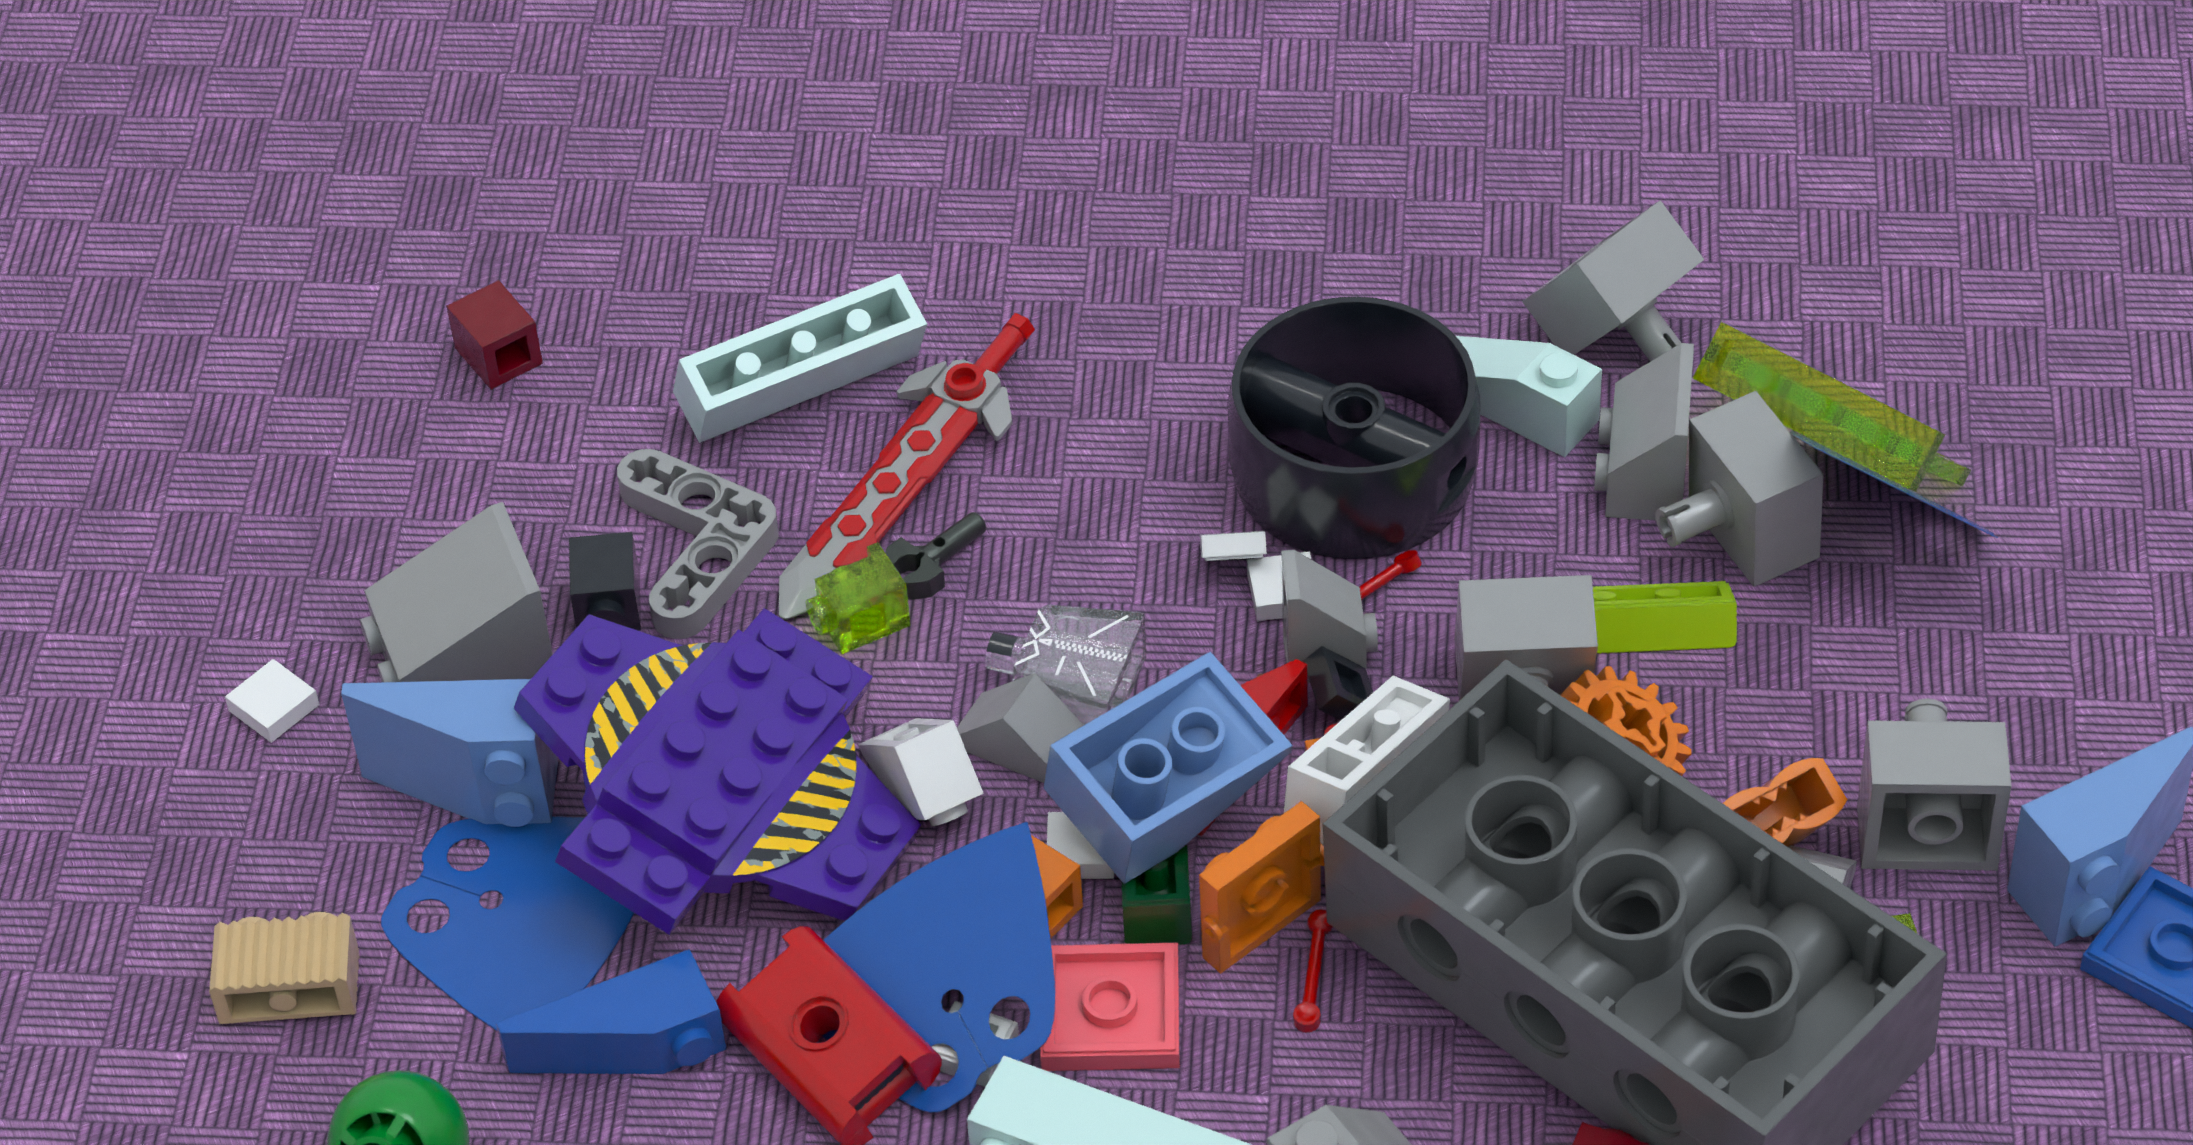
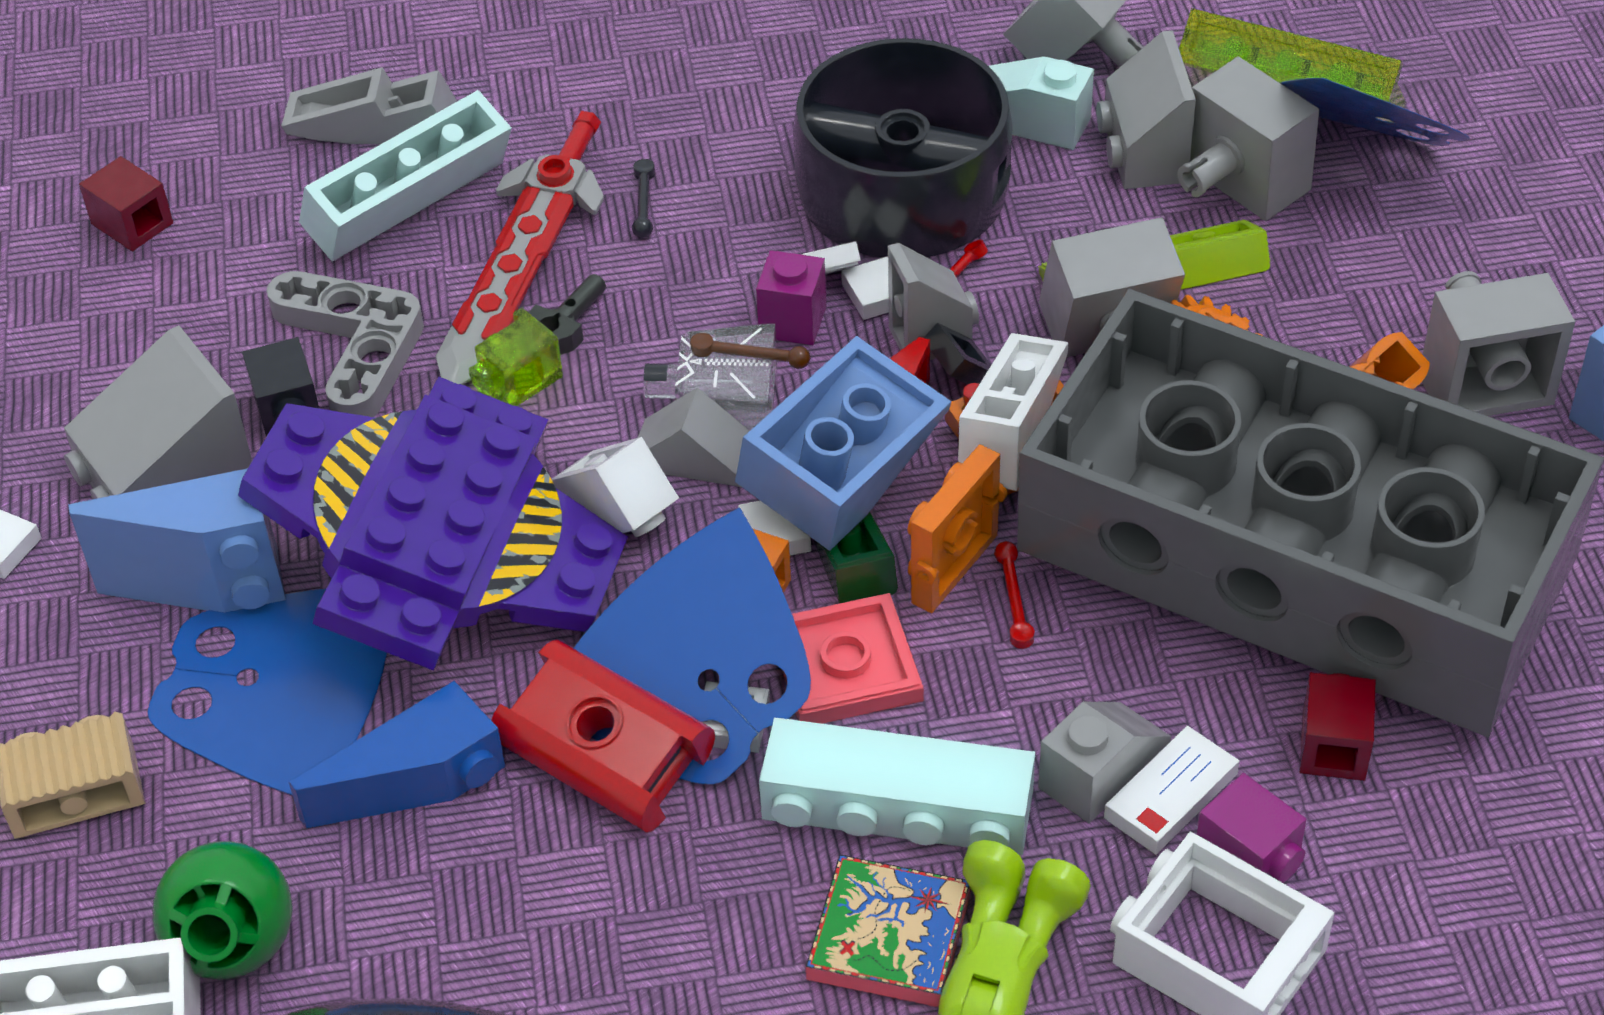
camera: 15 degrees left, 0 degrees up
(784, 264) = (365, 107): none -> light grey slope
(1057, 625) = (703, 346): none -> reddish brown hinge
(1069, 395) = (644, 171): none -> black hinge
(1178, 582) = (792, 296): none -> magenta brick

